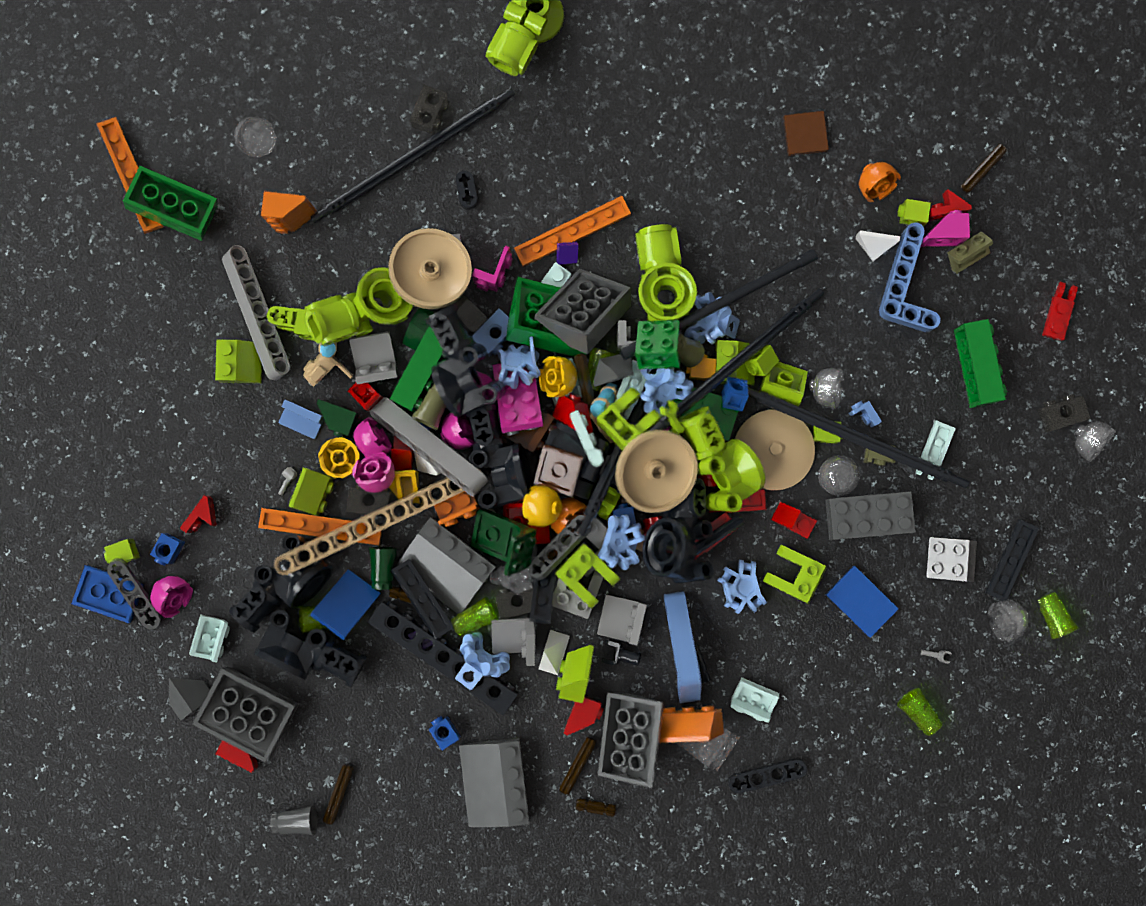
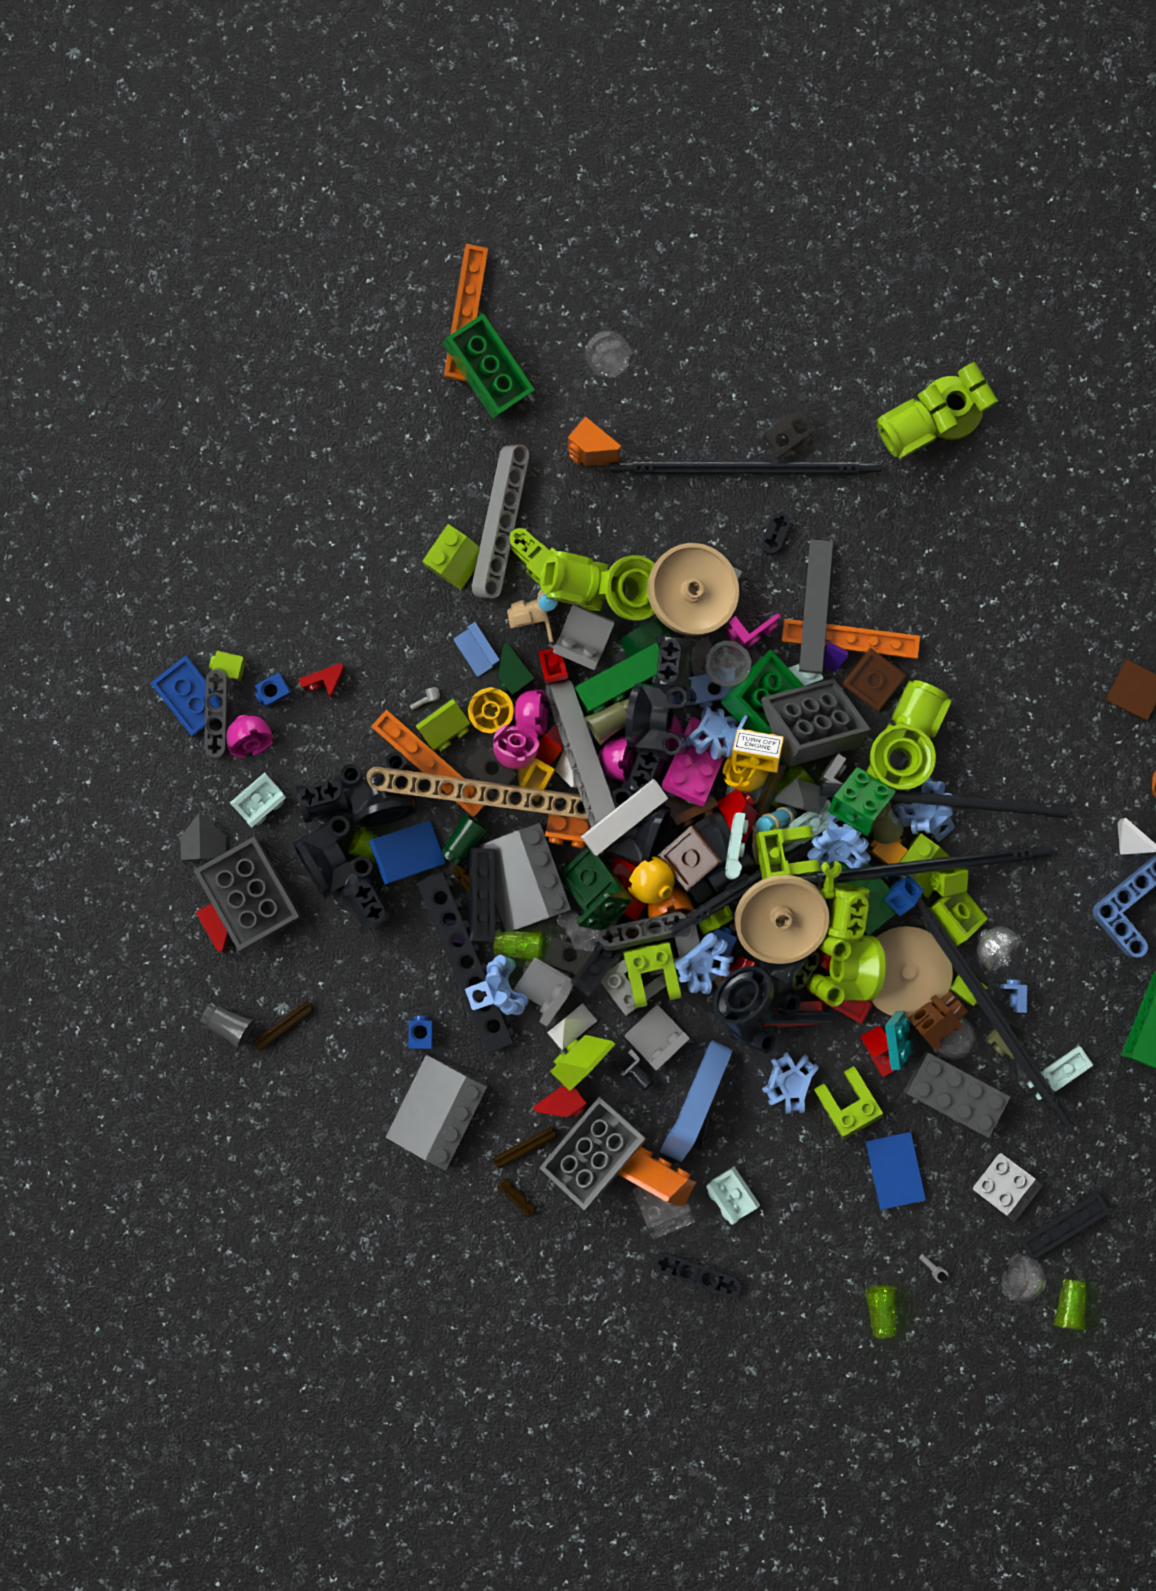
camera: 30 degrees right, 0 degrees up
(489, 472) = (624, 817): none -> white tile
(492, 307) = (727, 664): none -> clear cylinder
(531, 224) = (815, 606): none -> dark grey tile
(555, 357) = (757, 750): none -> brick
(609, 249) = (874, 679): none -> reddish brown tile
(799, 502) = (897, 1038): none -> teal plate
(820, 468) = (938, 1018): none -> reddish brown hips

